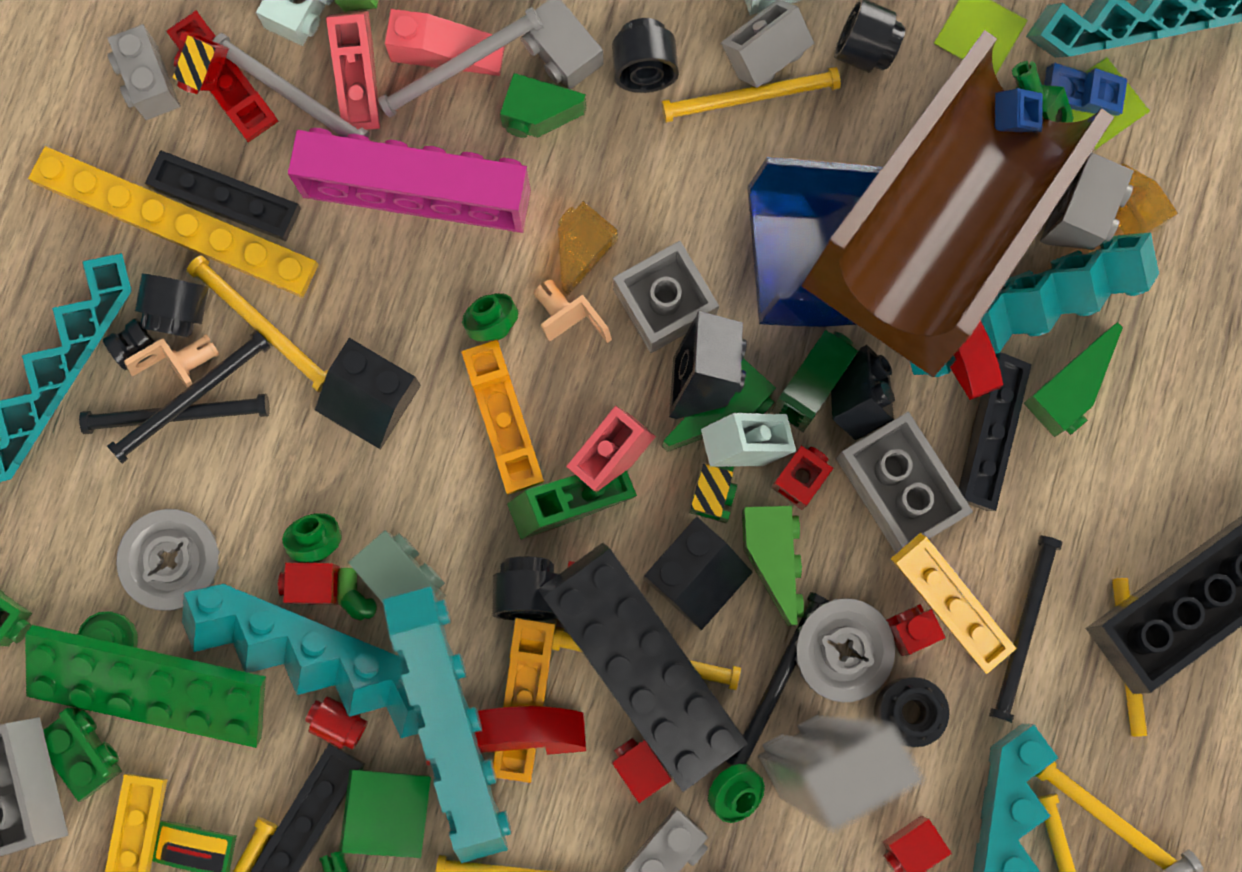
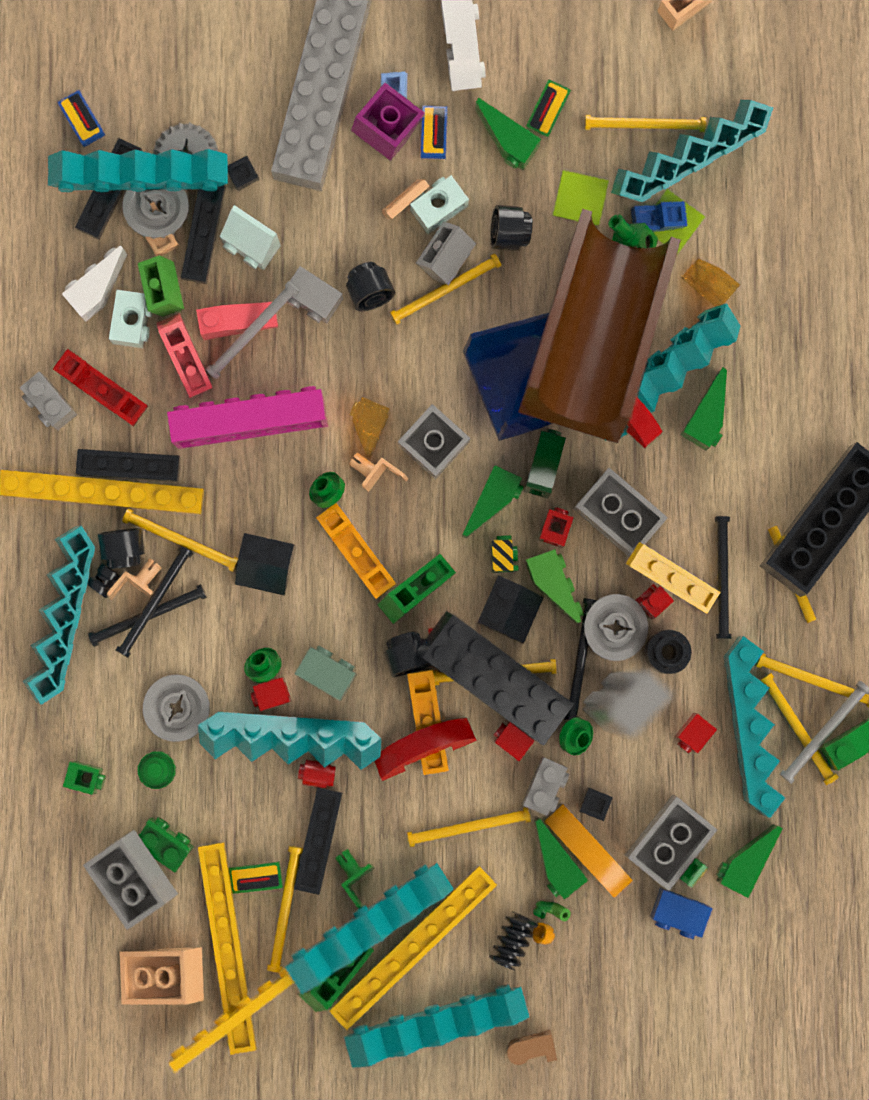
camera: 20 degrees left, 5 degrees up
(144, 686) = (191, 789): green plate -> none
(198, 63) = (84, 384): brick -> none
(288, 90) = (94, 367): light grey bar -> none
(350, 599) = (300, 695): green arm -> none
(385, 814) = (366, 818): green tile -> none
(446, 723) = (388, 751): teal brick -> none
(539, 107) = (311, 342): green slope -> none
(611, 449) = (431, 550): coral slope -> none
(707, 366) = (475, 479): black slope -> none
(748, 439) = (515, 517): light aqua brick -> none
(863, 394) = (578, 464): black slope -> none
(994, 435) = (667, 462): black plate -> none
(1018, 111) = (620, 250): blue slope -> none
(1089, 205) = (683, 297): light grey slope -> none

